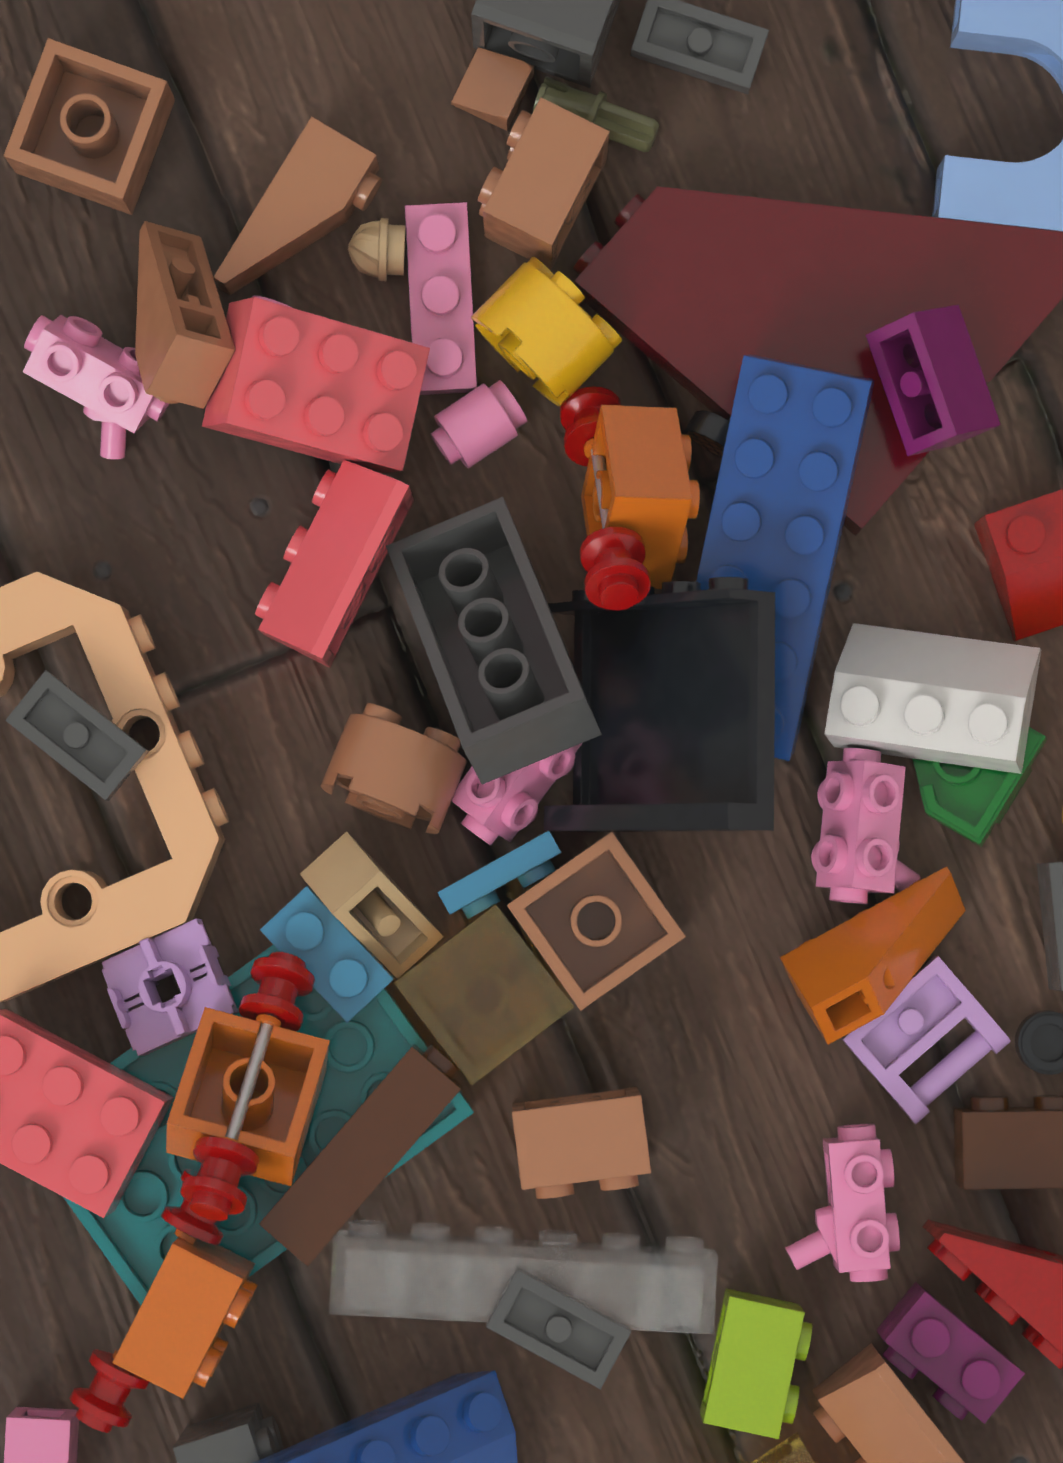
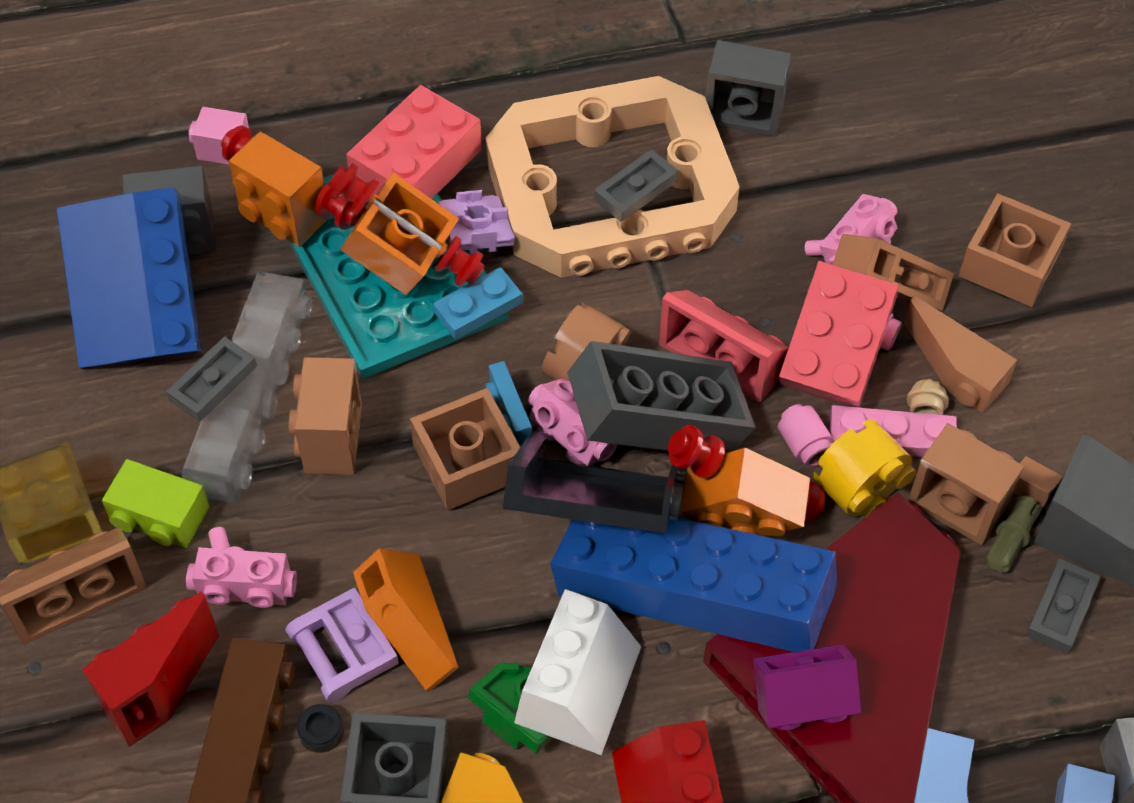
camera: 100 degrees right, 30 degrees down
(363, 1152) = (351, 298): reddish brown brick -> none
(371, 905) = (504, 334): tan slope -> none
(484, 994) = (430, 372): clear yellow brick -> none
(861, 828) = (484, 617): bright pink brick -> none
(950, 1353) = (118, 614): magenta brick -> none

